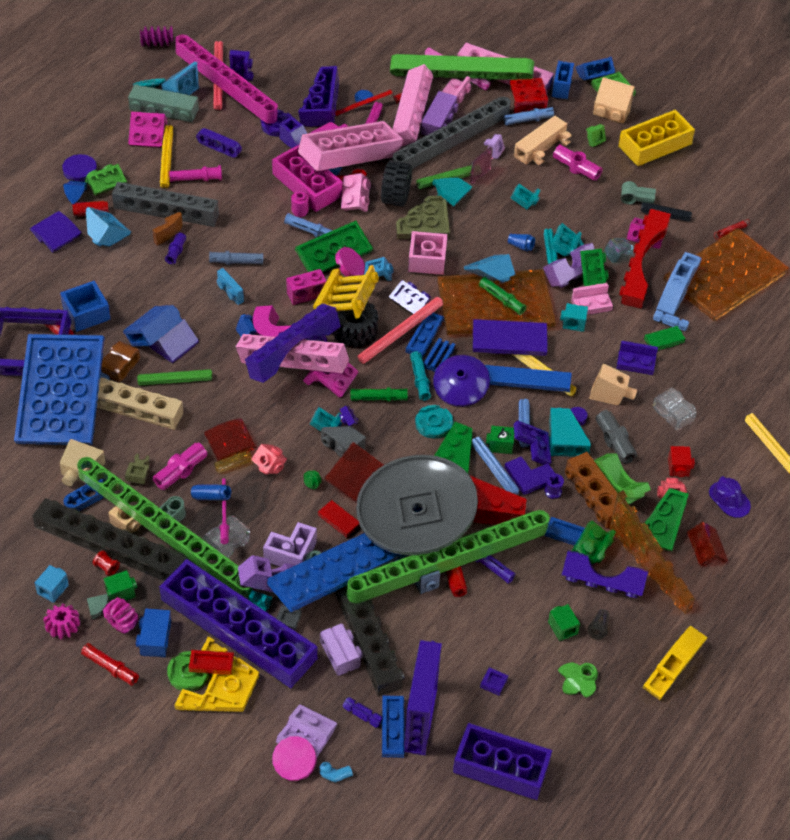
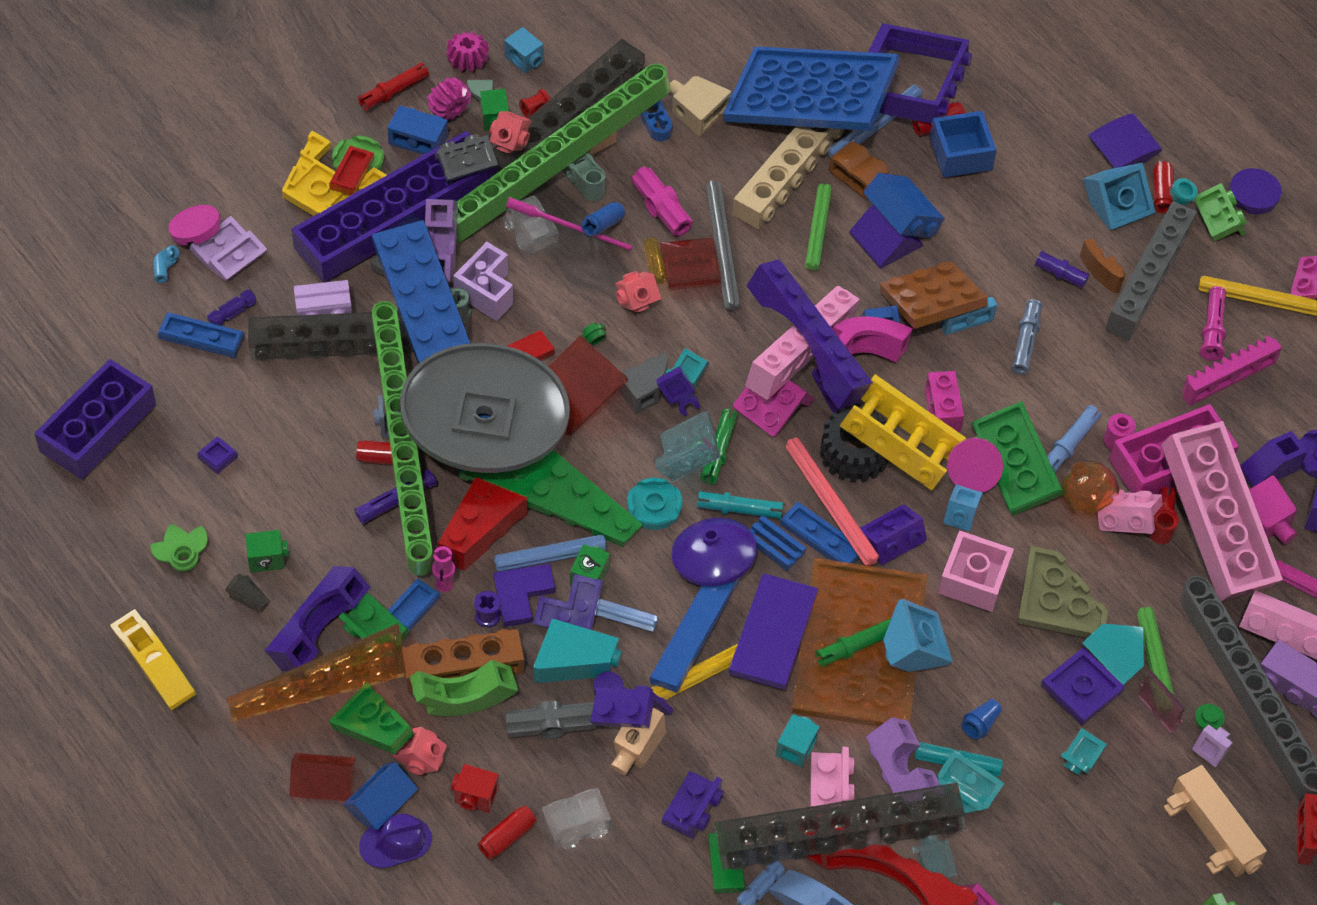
camera: 105 degrees right, 5 degrees up
(74, 190) = (1205, 172): blue tile -> none
(96, 194) = (1183, 191): none -> teal tile
(137, 471) = (668, 157): olive plate -> none
(157, 552) = (510, 131): none -> coral brick
(192, 573) = (466, 157): none -> dark grey bracket
(201, 427) = (723, 245): none -> dark grey axle
(222, 302) = (933, 294): none -> dark orange plate
(227, 147) = (1280, 363): dark purple beam -> none
(232, 162) = (1231, 371): none -> dark pink gear
(349, 208) = (1088, 487): none -> clear orange cylinder
(390, 404) = (688, 447): none -> clear light blue bracket
(396, 183) = (1129, 559): black tyre -> none
(422, 697) = (164, 298): dark purple window -> none
(475, 151) = (1209, 715): none -> green plate
(481, 202) = (1082, 686): none -> dark purple plate
(536, 115) = (1287, 836): medium blue pin -> none
(541, 503) = (443, 569): none -> dark pink pin
(577, 162) = (1137, 869): dark pink piece -> none
(593, 267) = (884, 780): green bracket -> none
(602, 385) = (626, 707): none -> dark purple bracket
(641, 298) = (851, 815): none -> clear smoke brick
(699, 441) = (507, 832): none -> red piece
(707, 510) = (381, 796): none -> blue brick

